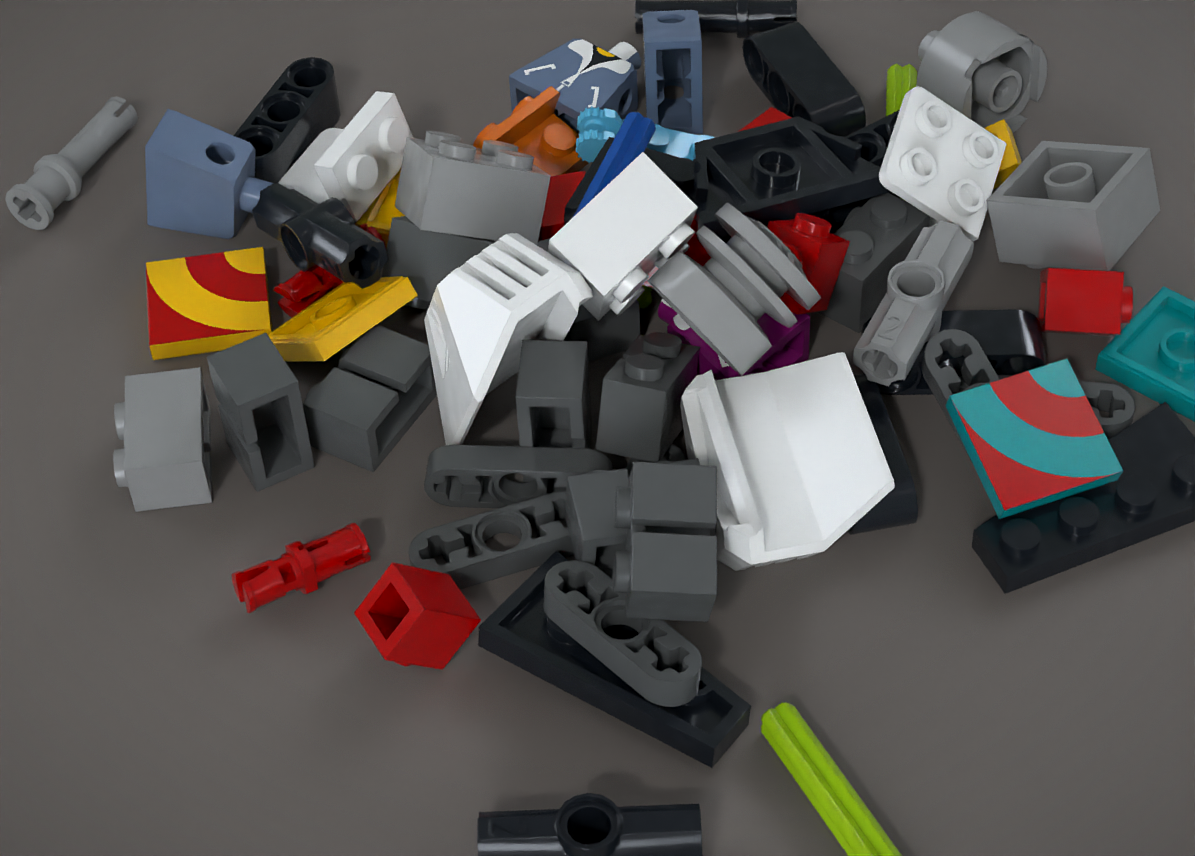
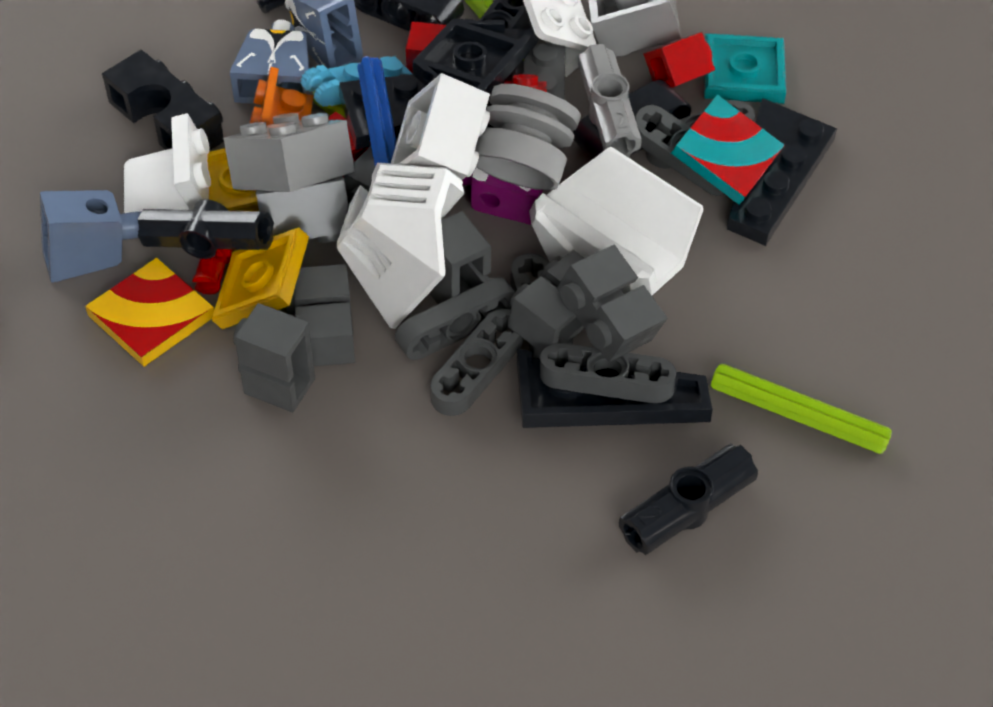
camera: 40 degrees left, 5 degrees up
(164, 440) = (215, 409): light grey piece -> none
(291, 116) = (98, 157): black beam -> none
(301, 567) = (376, 440): red pin -> none
(416, 69) = (146, 87): none -> black arch
(417, 616) = (483, 429): red brick -> none
(644, 395) = (505, 227): dark grey piece -> none

